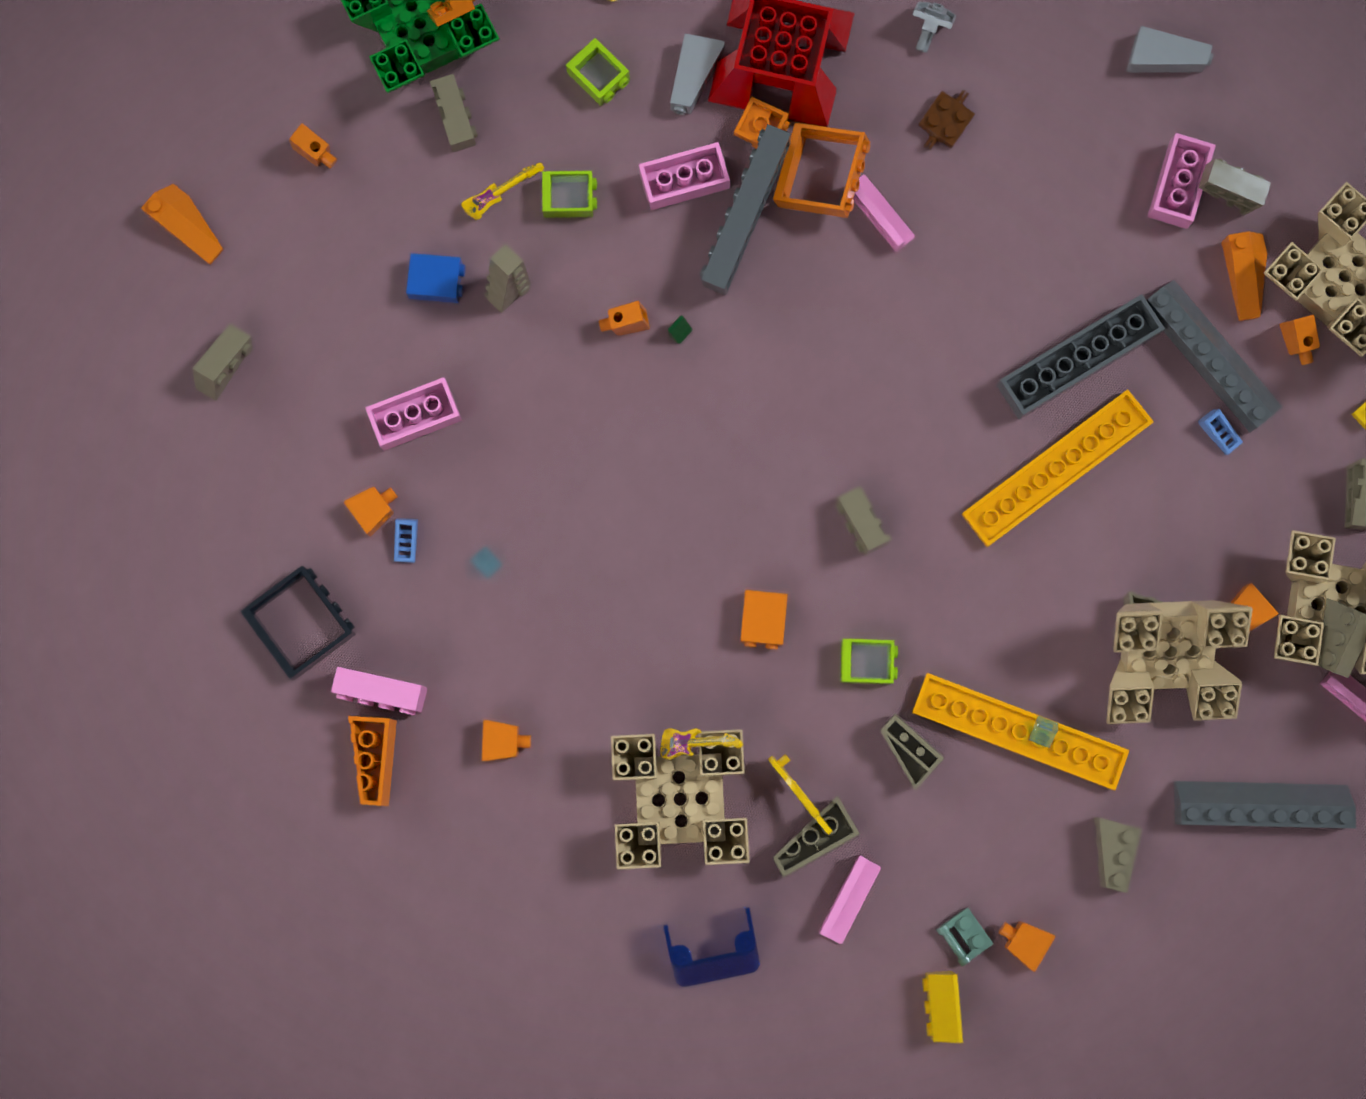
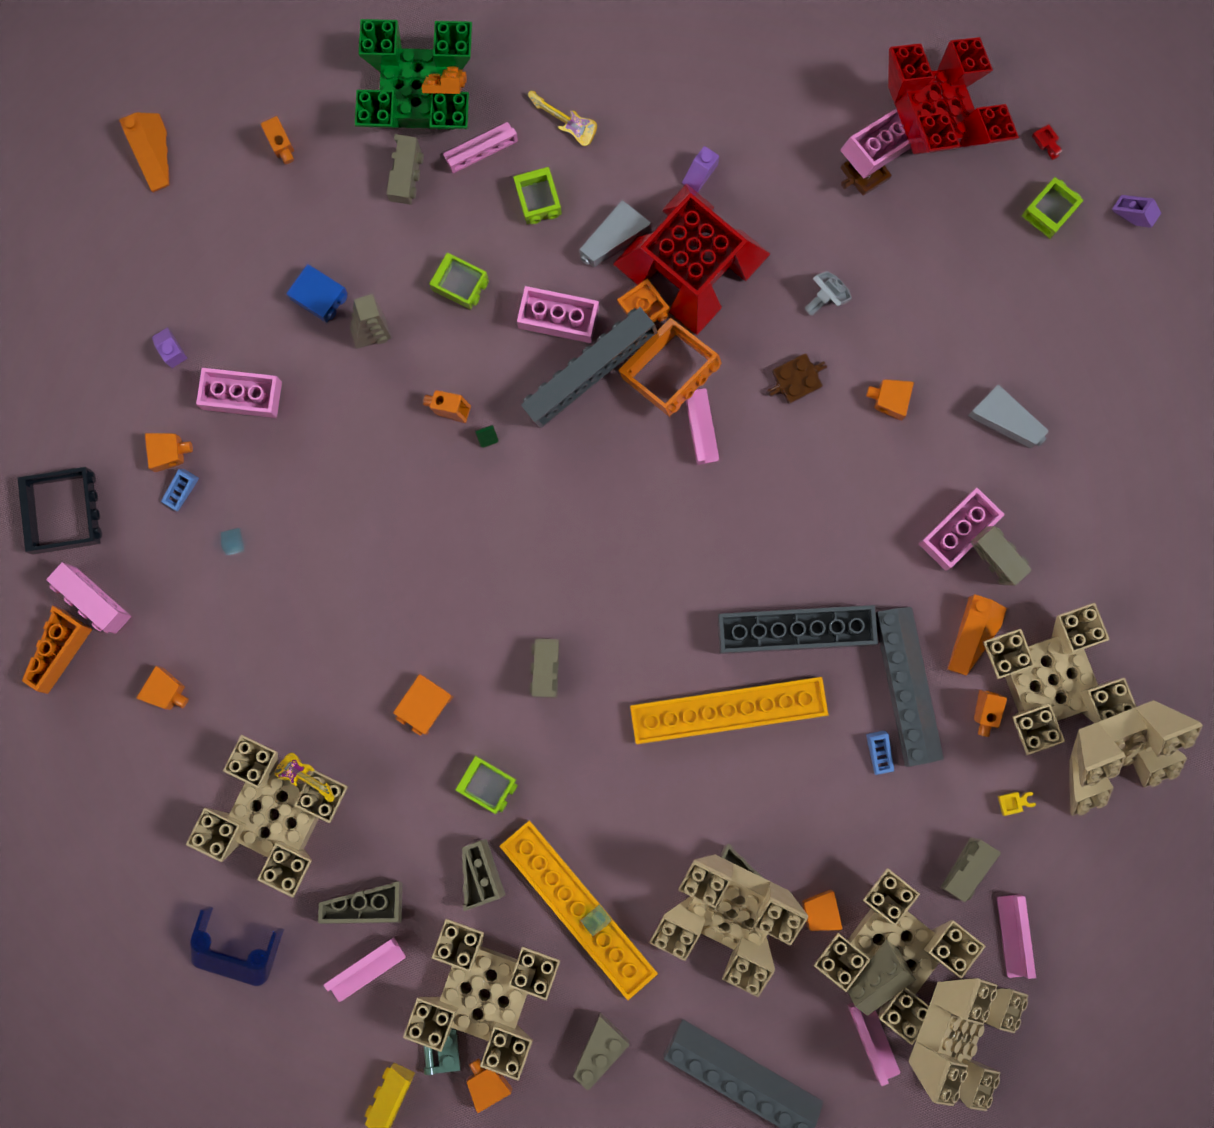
camera: 30 degrees right, 0 degrees up
(221, 361) = (115, 272): dark tan wedge -> none
(316, 407) = (169, 348): none -> medium lavender slope
(478, 204) = (385, 252): yellow piece -> none
(514, 53) = (480, 147): none -> bright pink panel
(778, 765) = (367, 834): yellow piece -> none
(1026, 893) = (436, 1016): none -> tan slope
(1047, 90) = (892, 397): none -> orange torso

